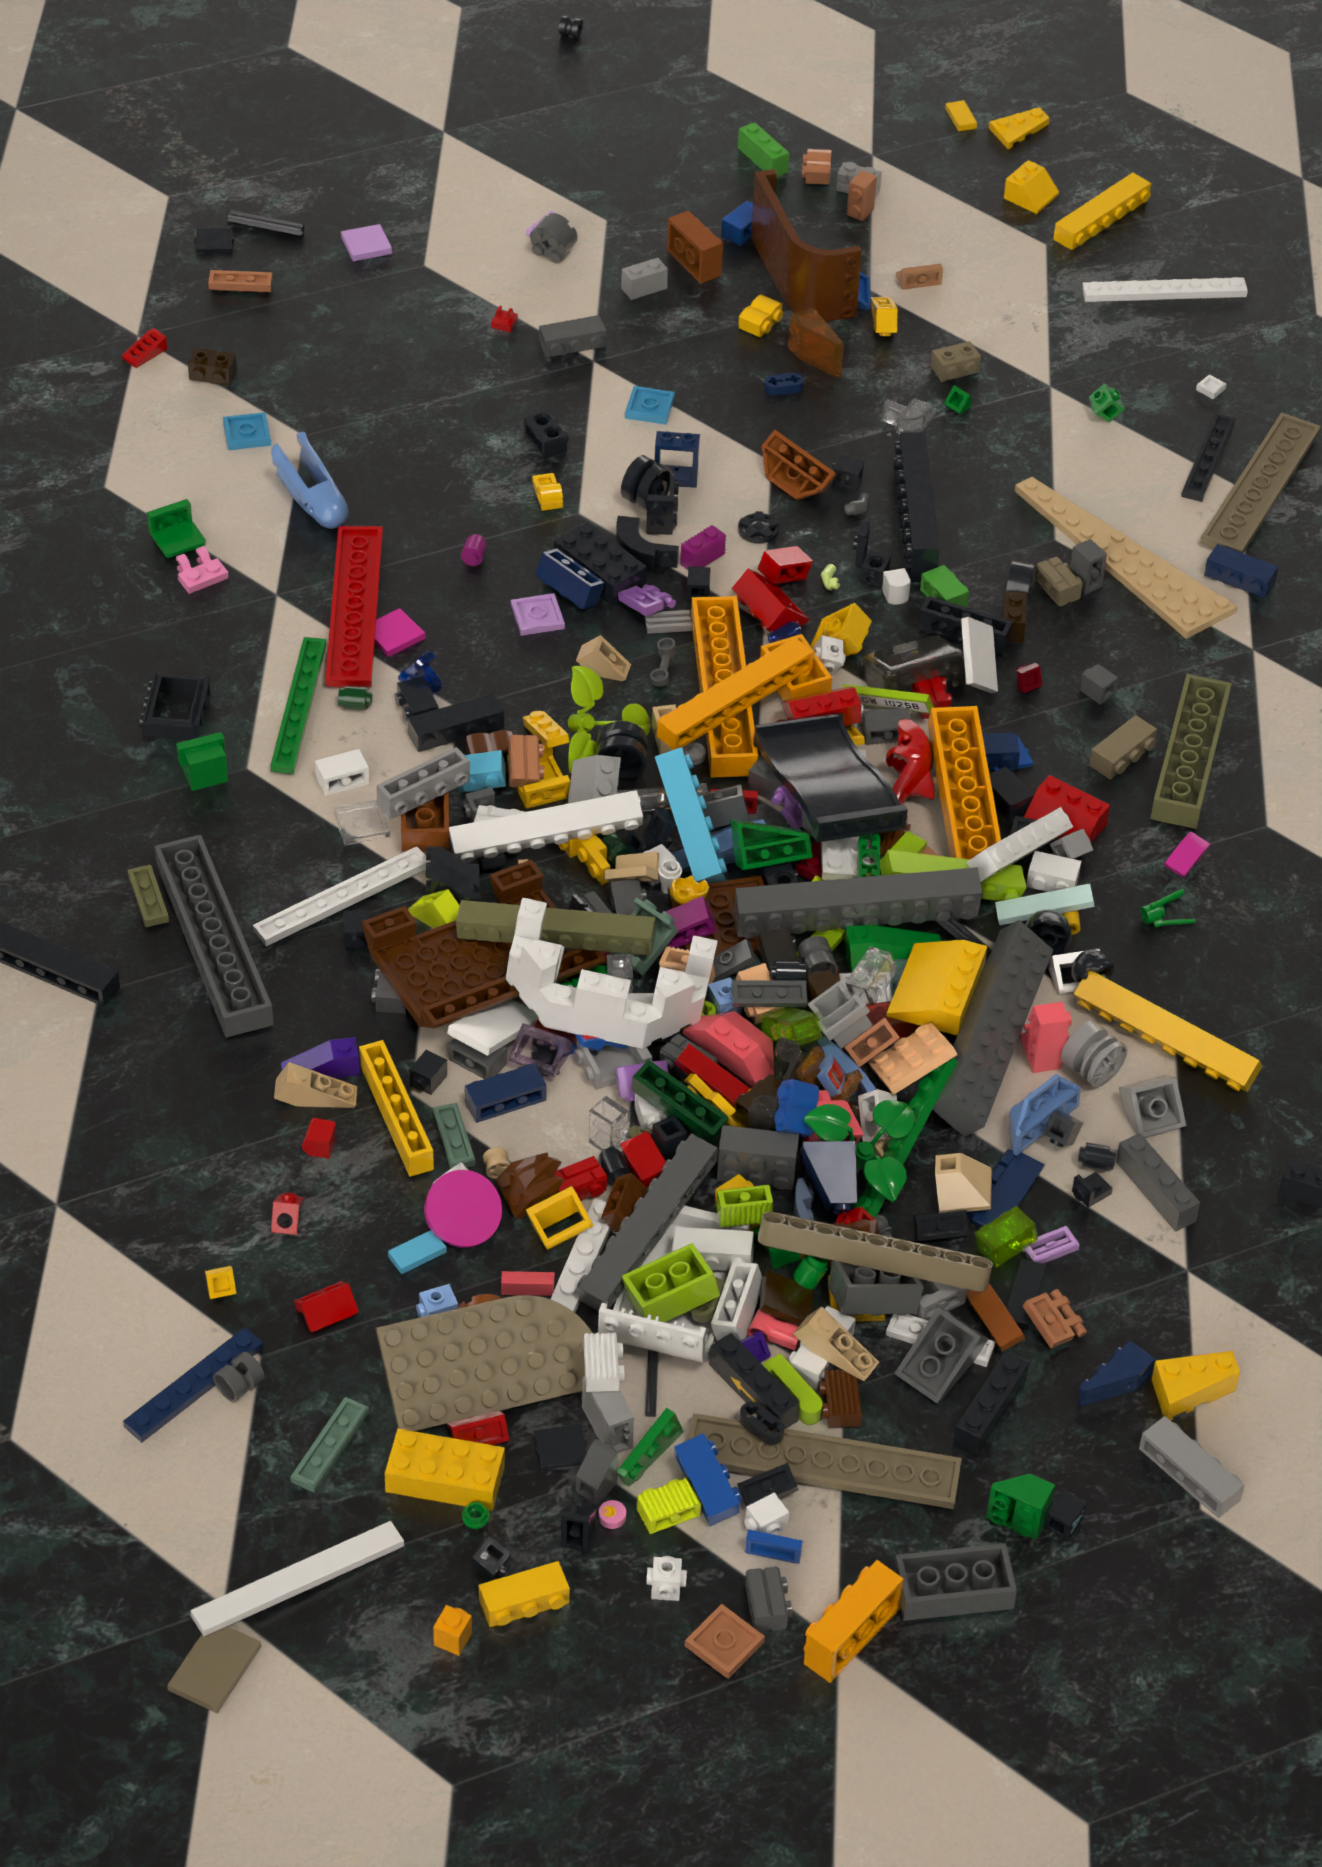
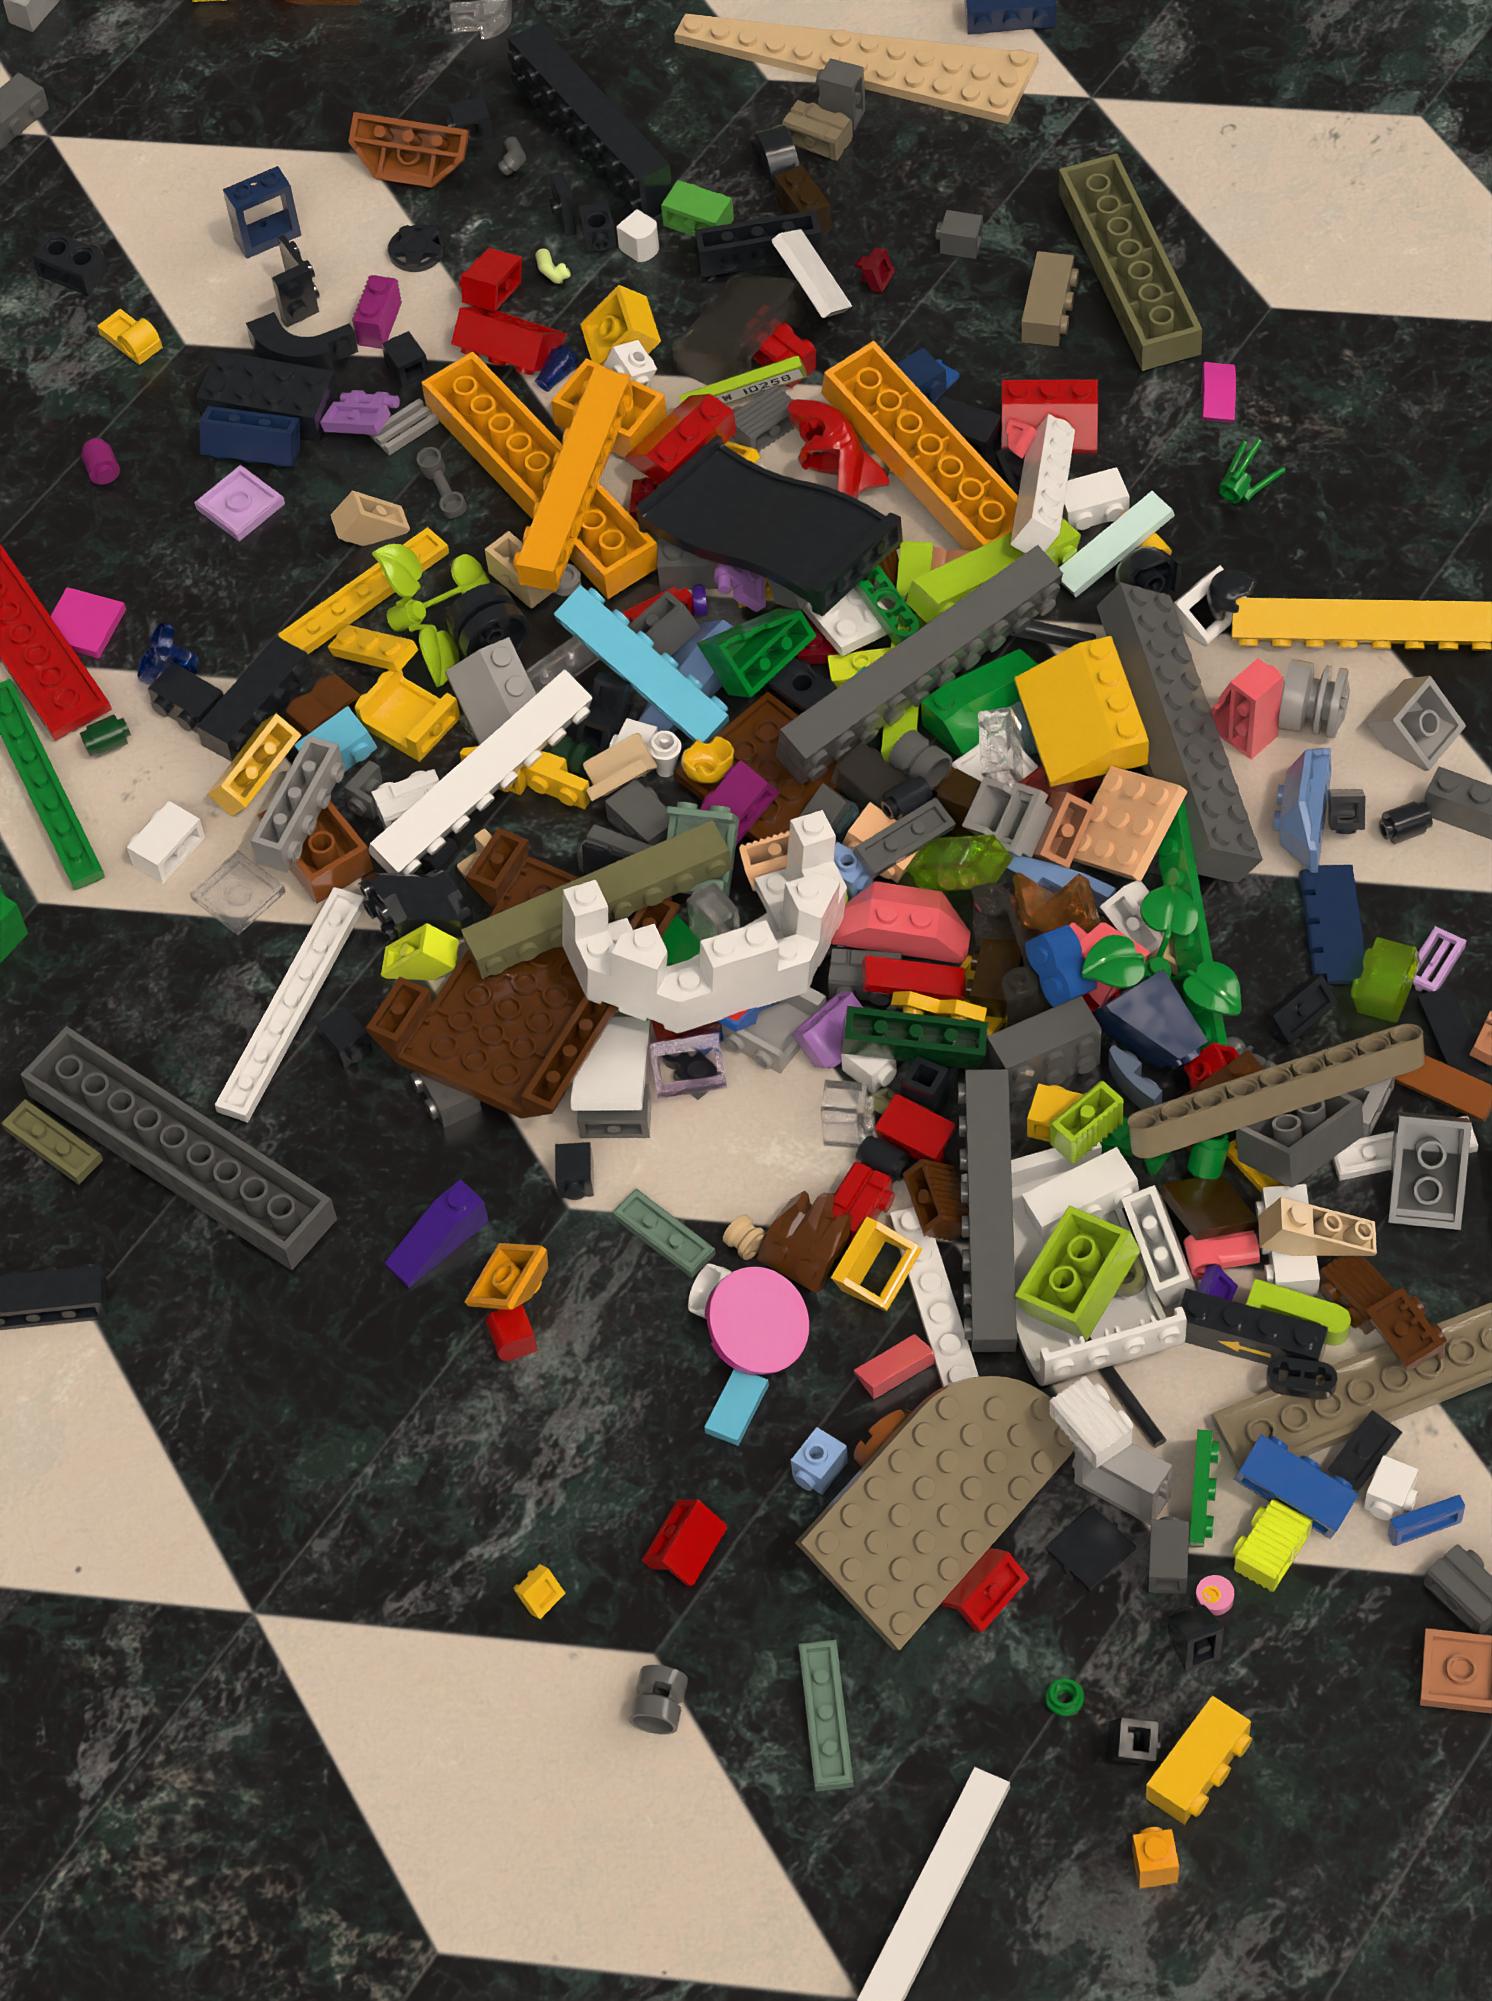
camera: 25 degrees left, 10 degrees up
(189, 1386) = (605, 1744): dark blue plate -> none
(289, 1204) = (540, 1442): bracket -> none
(312, 1089) = (445, 1276): tan slope -> none
(342, 1106) = (509, 1277): none -> light orange slope
(396, 1108) = (576, 1240): yellow brick -> none
(418, 754) = (254, 764): none -> yellow brick
(444, 1469) = (989, 1663): yellow brick -> none
(505, 1092) = (684, 1141): dark blue brick -> none
(524, 760) = (385, 704): nougat brick -> none
(562, 700) = (357, 597): none -> yellow plate
(643, 479) = (248, 262): black wheel -> none
(650, 405) = (164, 157): dark azure tile -> none
(666, 1578) = (1342, 1636): white brick -> none
(763, 805) = (699, 600): none -> dark purple piece
(783, 384) = (304, 46): dark blue beam -> none
(831, 1075) = (1057, 897): medium blue slope -> none
(846, 1430) = (1406, 1330): none -> reddish brown bracket
(962, 1183) = (1292, 945): tan slope -> none
(1034, 813) = (1019, 436): none -> coral tile
(1072, 845) = (1091, 453): light grey brick -> none
(1090, 1189) = (1426, 865): black bracket -> none

